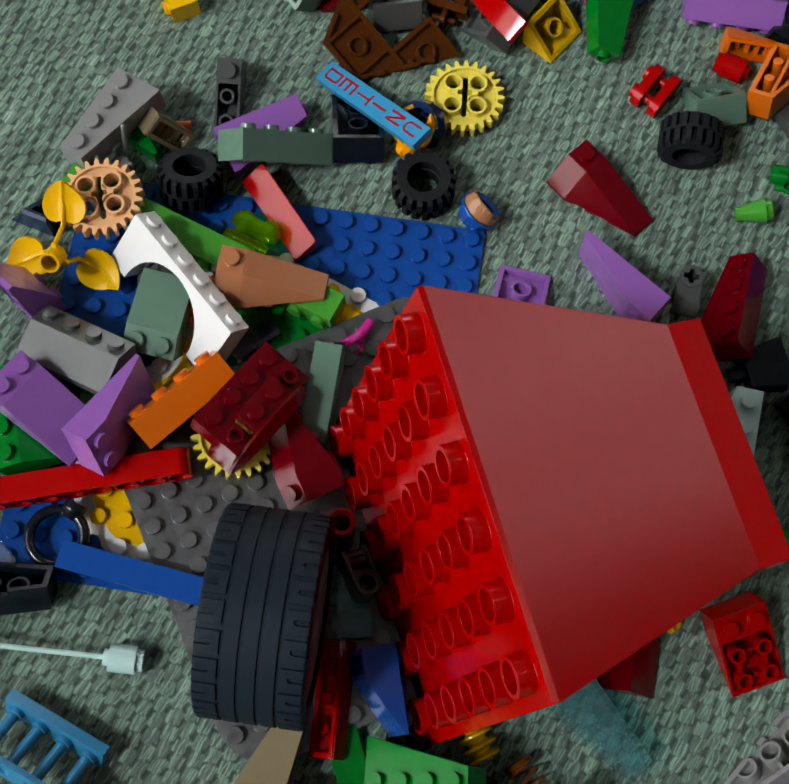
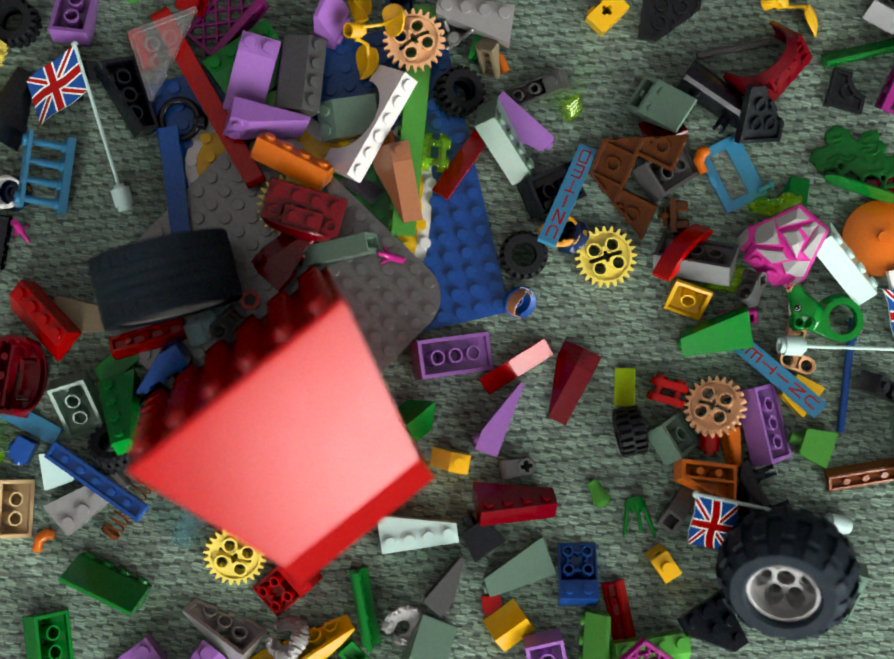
camera: 70 degrees right, 15 degrees up
(269, 67) = (571, 108): none -> clear neon green slope
(557, 248) = (516, 366): none -> slope
(631, 135) = (624, 387): none -> lime slope
(696, 717) = (228, 568): none -> light yellow gear
(711, 54) = (708, 422): none -> light nougat gear

